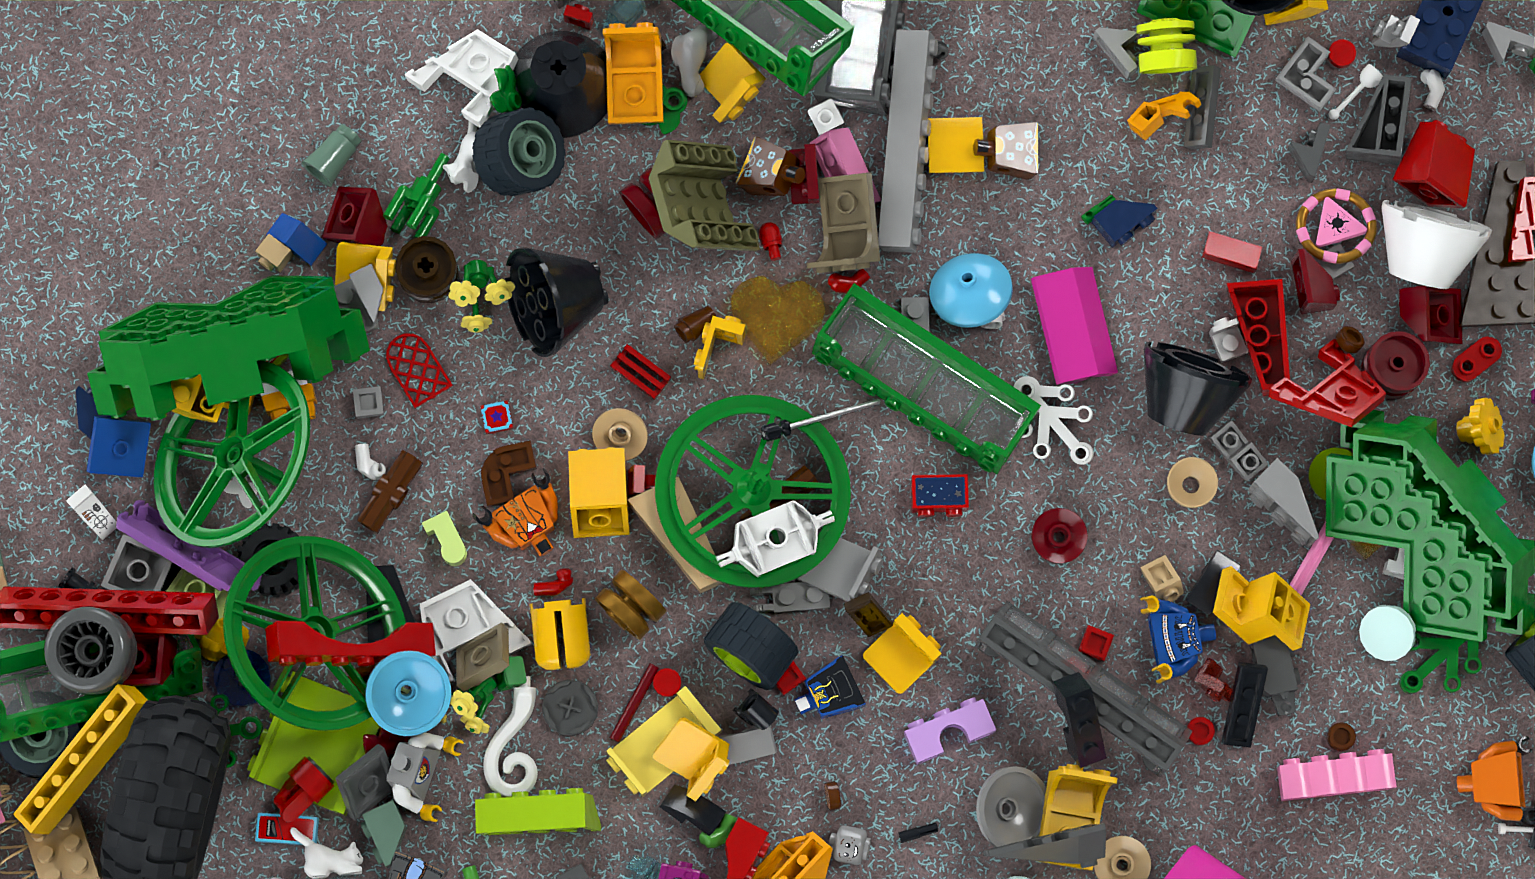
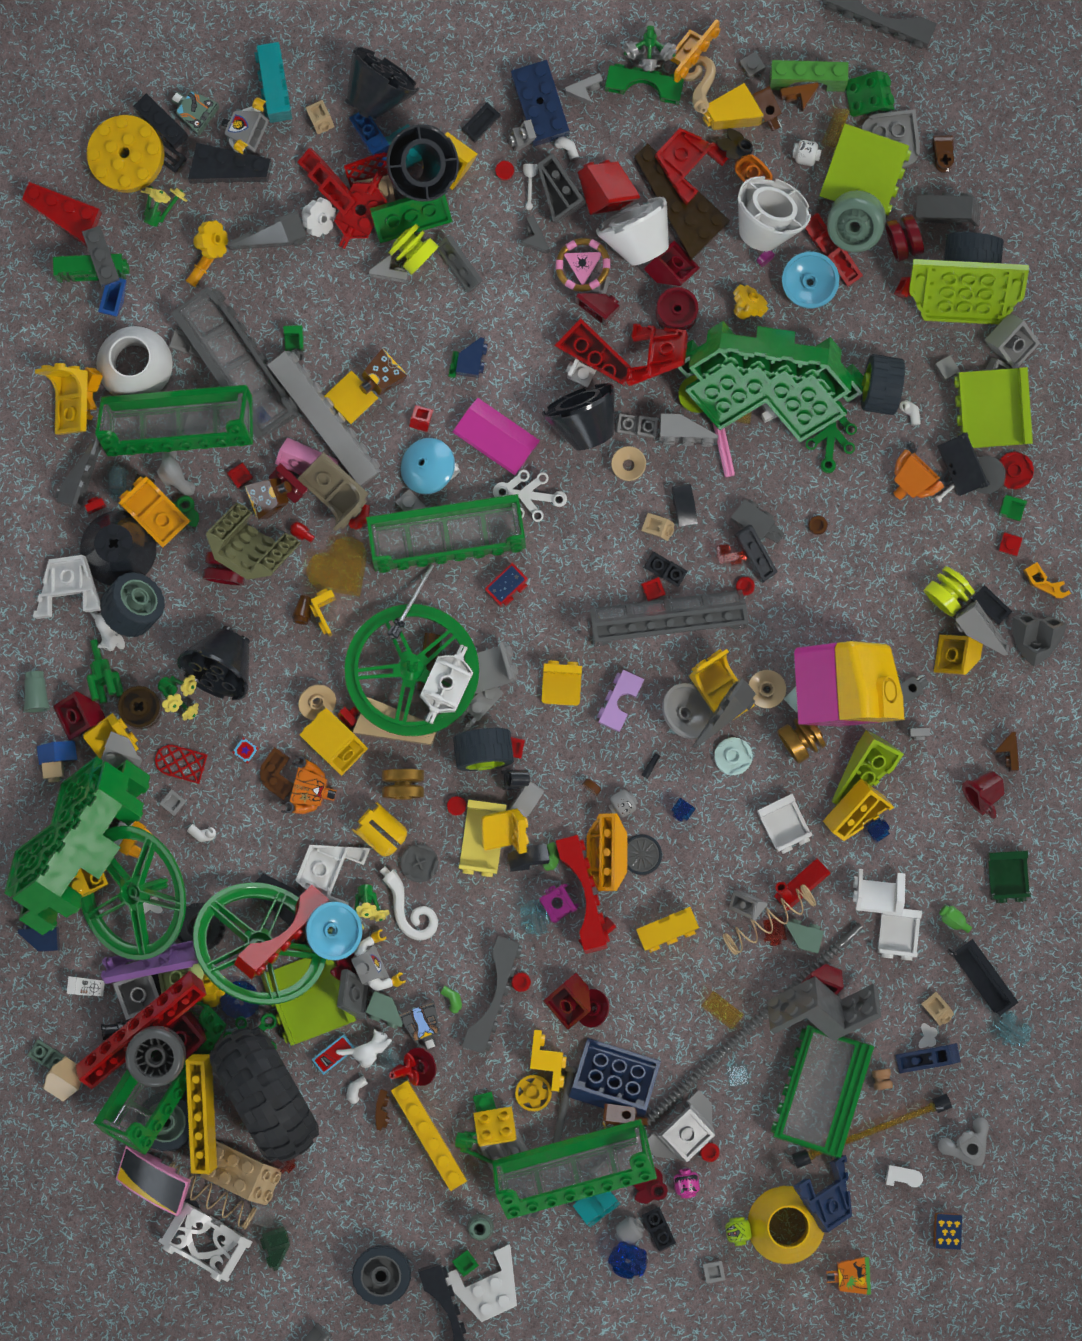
camera: 40 degrees left, 5 degrees up
(118, 446) = (67, 941): blue plate -> none
(303, 787) = (328, 1020): red piece -> none
(389, 491) = (226, 838): reddish brown piece -> none
(452, 547) = (284, 836): yellowish green leg -> none
(482, 657) = (353, 878): dark tan plate -> none
(506, 98) = (100, 581): green plate -> none
(512, 676) = (373, 873): green slope -> none
(536, 813) = (452, 931): lime wedge -> none
(557, 586) = (356, 808): red arm -> none
(622, 358) = (296, 660): red tile -> none
(634, 703) = (449, 831): dark red bar -> none
(731, 81) = (206, 468): yellow bracket -> none
(761, 122) = (240, 475): none -> red tile
(825, 116) = (272, 443): white bracket -> none
(831, 691) = (543, 735): torso -> none
(868, 614) = (527, 679): dark brown plate -> none
(953, 28) = (294, 337): none -> green panel
(1010, 234) = (421, 418): none -> red slope
(1064, 522) = (590, 542): dark red dish -> none
(1083, 731) = (689, 641): black arch -> none
(1128, 633) = (665, 569): none -> black slope
(1160, 108) = (438, 284): light orange piece -> none
(1175, 637) = (690, 550): blue torso -> none
(1232, 252) = (541, 325): slope -> none
(1261, 608) = (721, 496): yellow bracket -> none
(1300, 75) = (495, 202): light grey brick -> none
(1336, 777) = (833, 548): bright pink brick -> none
(1350, 339) = (642, 317): reddish brown tile -> none
(1387, 632) = (794, 451): light aqua tile -> none
(1476, 358) = (715, 269): red plate -> none

